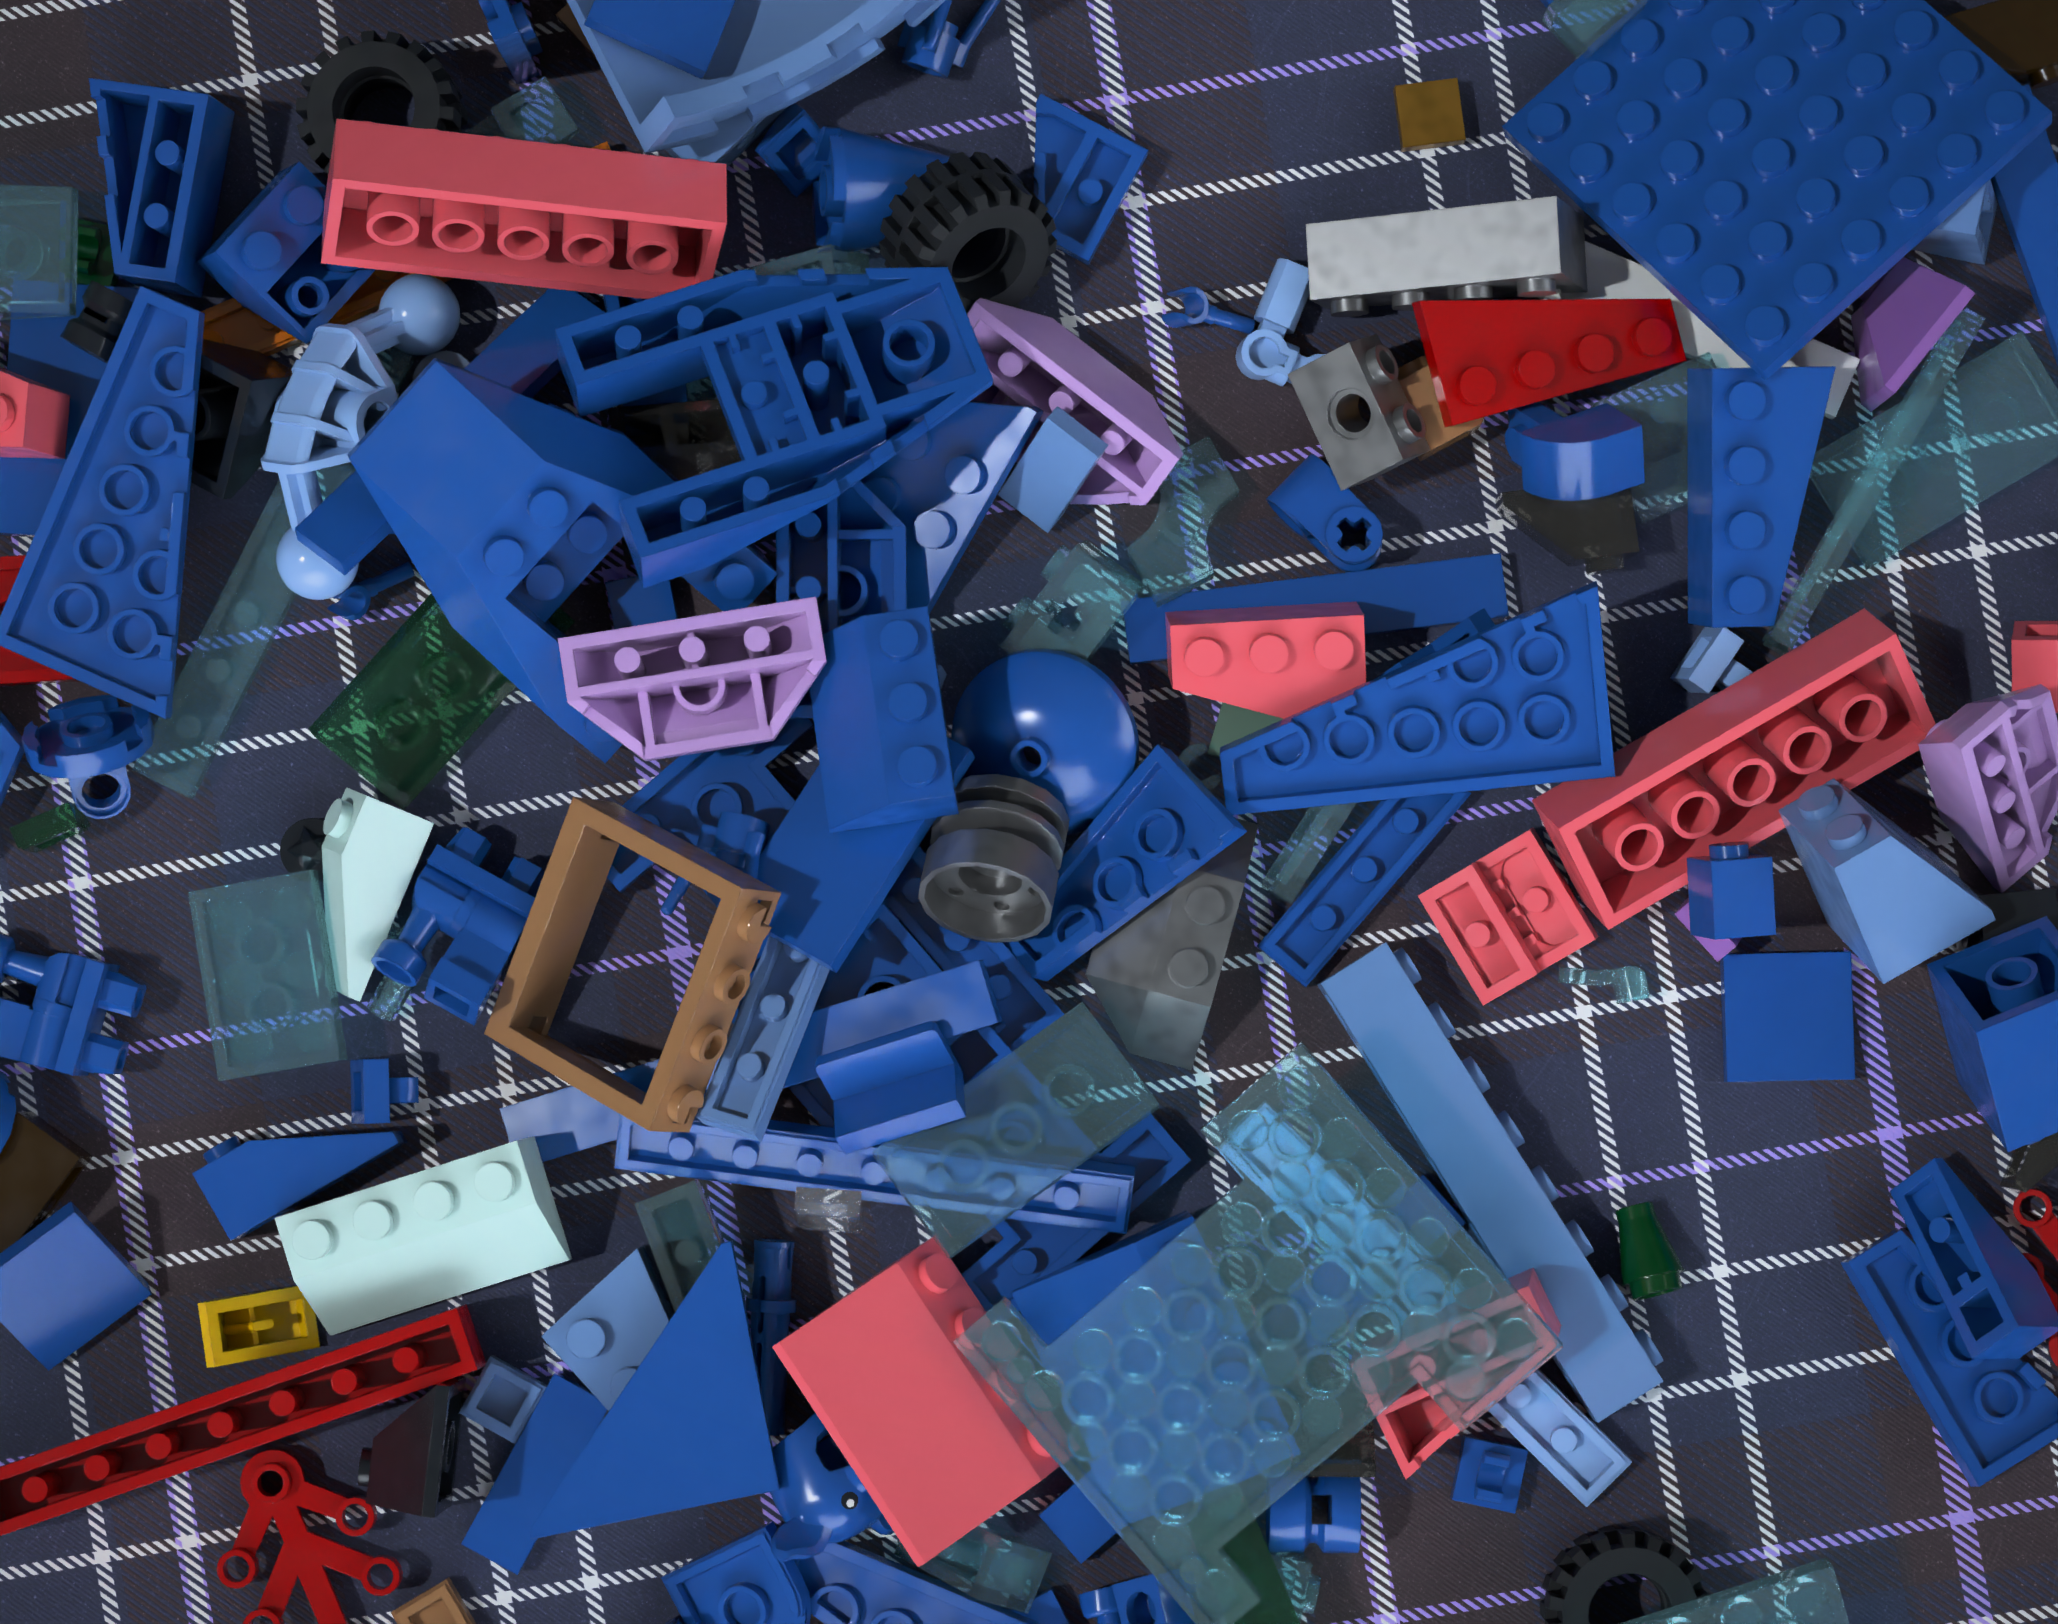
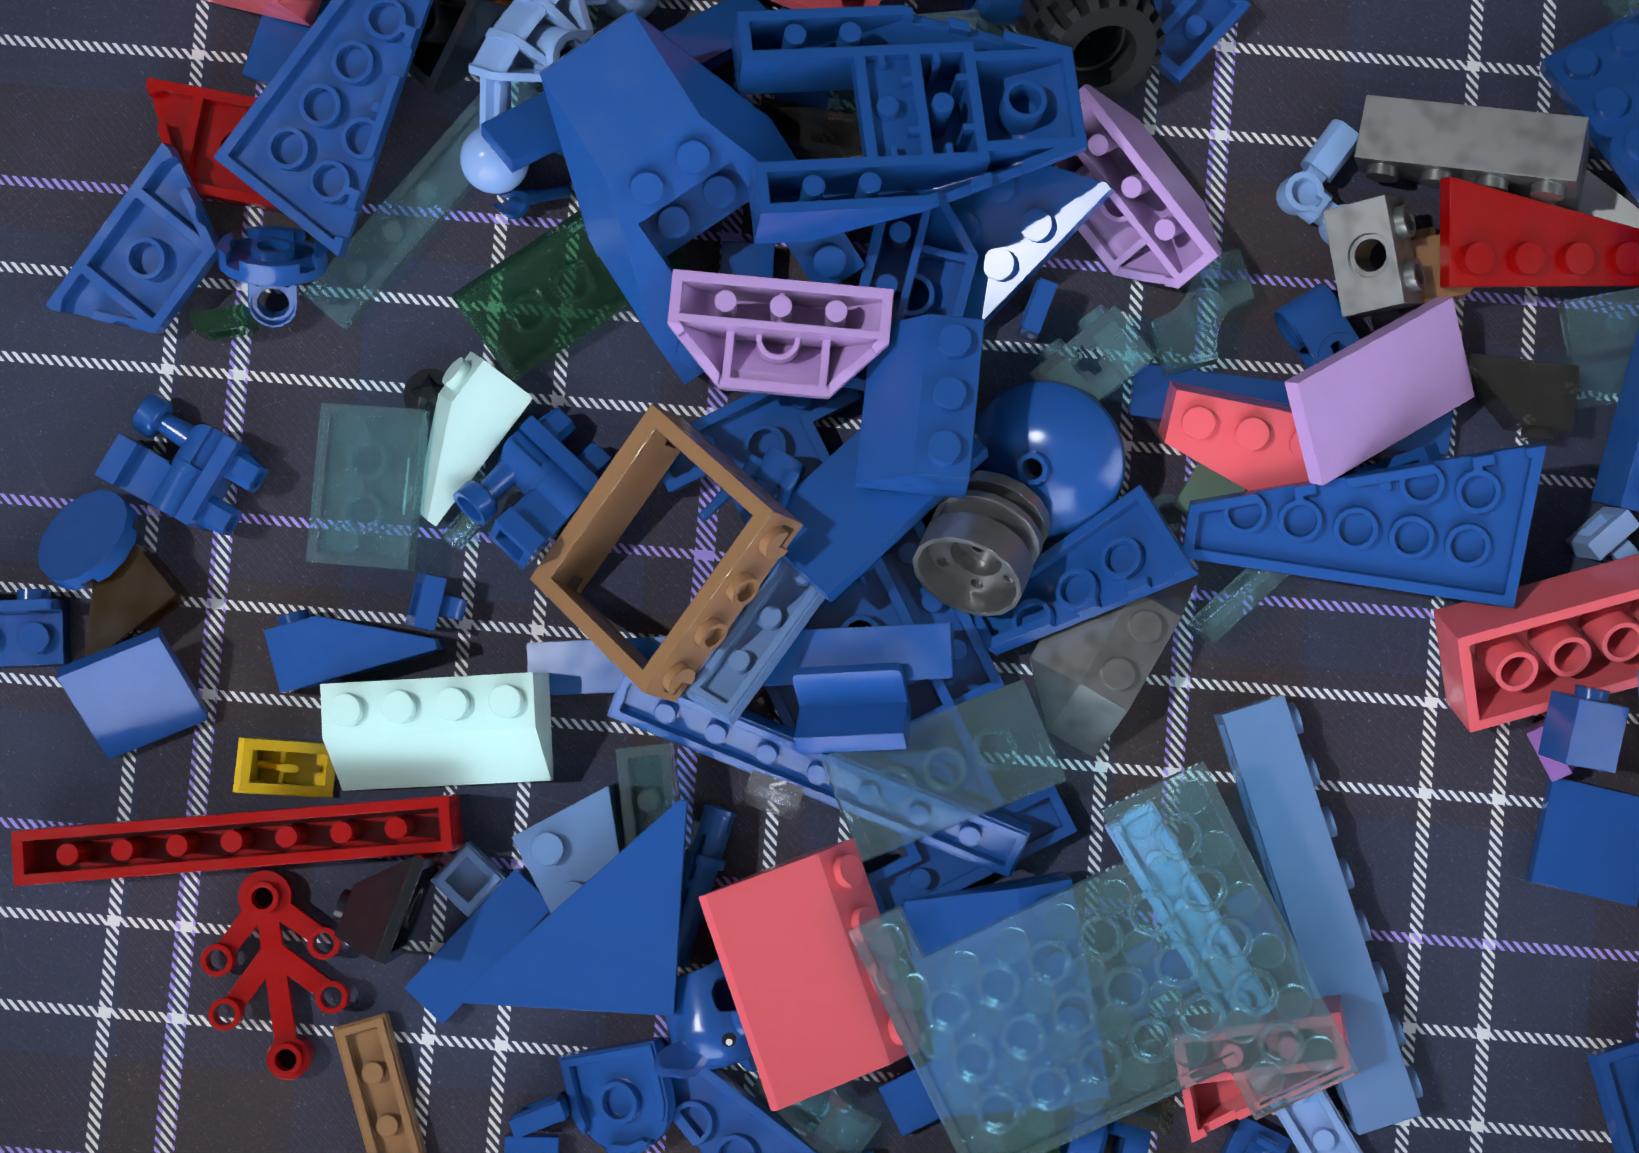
camera: 20 degrees right, 0 degrees up
(990, 568) = (1036, 309): none -> blue tile
(1053, 469) = (1109, 240): medium blue tile -> none
(1199, 310) = (1257, 144): blue hand -> none
(1355, 881) = (1268, 638): blue tile -> none
(1403, 565) = (1379, 390): none -> lavender tile
(1429, 114) = (1484, 36): pearl gold tile -> none
(1508, 916) = (1384, 700): coral slope -> none
(1575, 454) = (1542, 337): blue brick -> none
(1628, 982) = (1469, 779): clear light blue hand -> none
(1646, 1253) = (1429, 1004): dark green cone -> none

